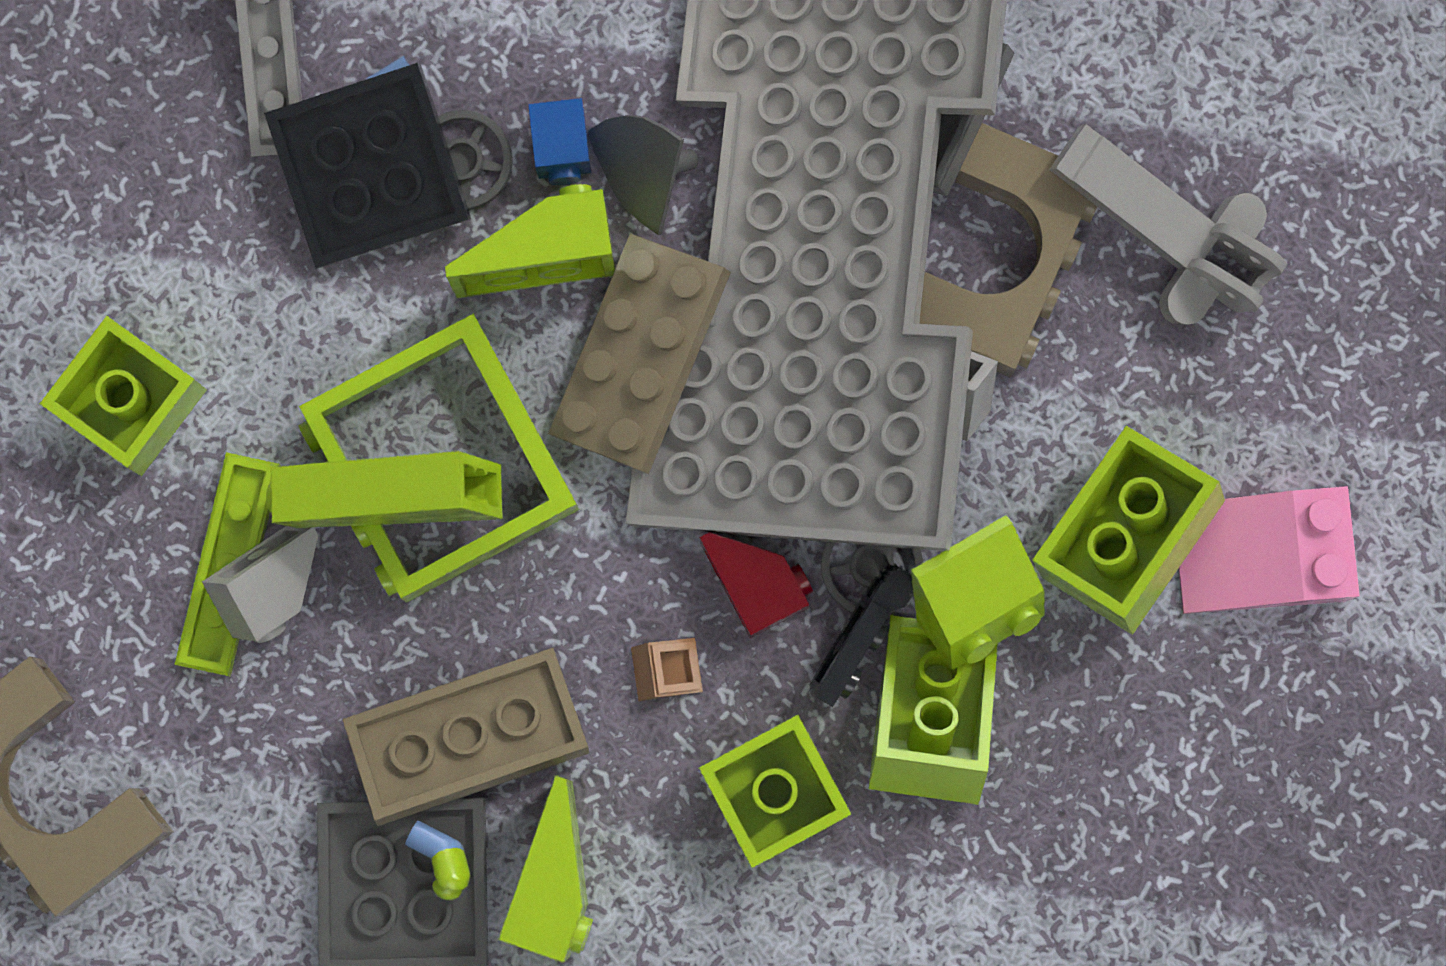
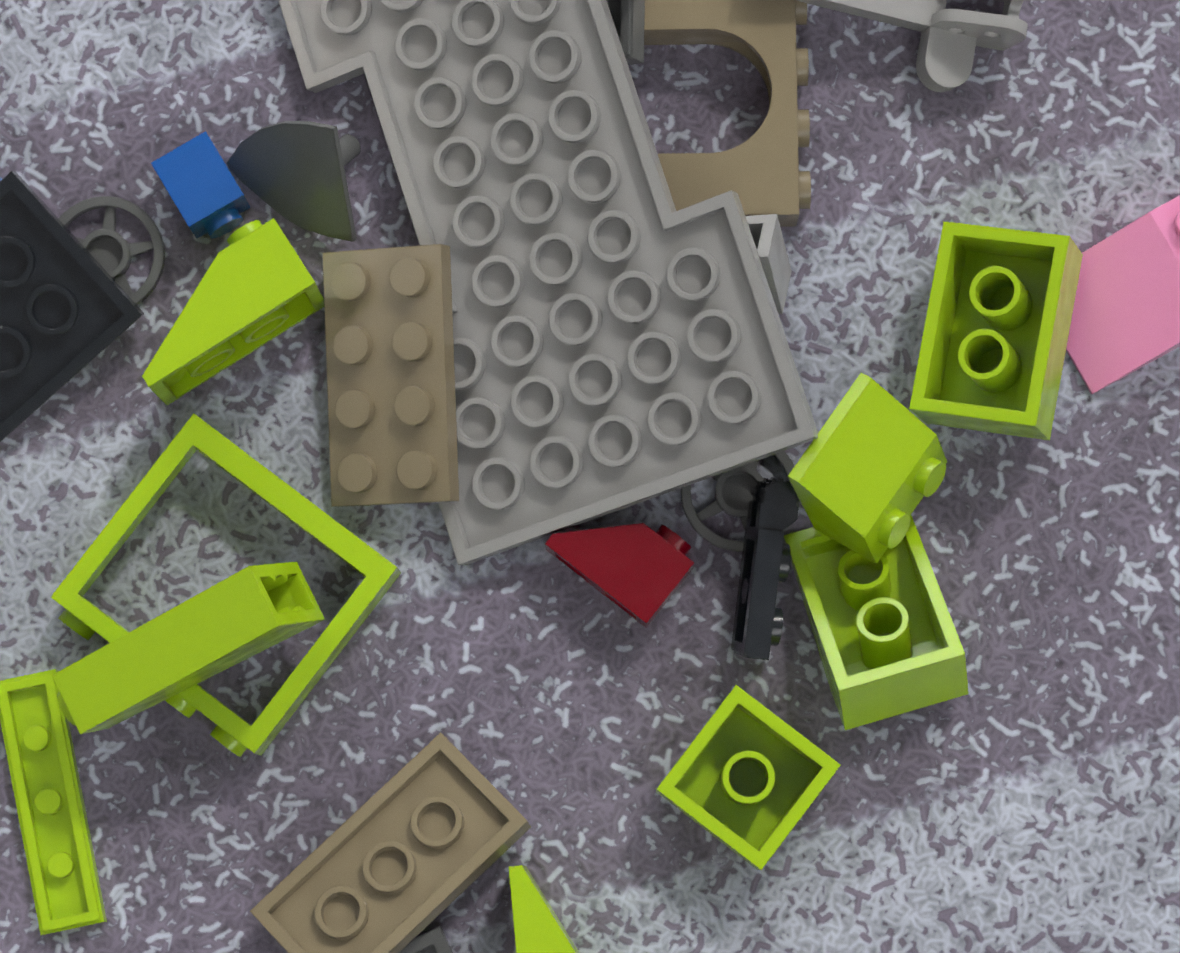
camera: 20 degrees left, 0 degrees up
(264, 585) = (100, 805): light grey slope -> none
(666, 669) = (571, 700): medium nougat slope -> none

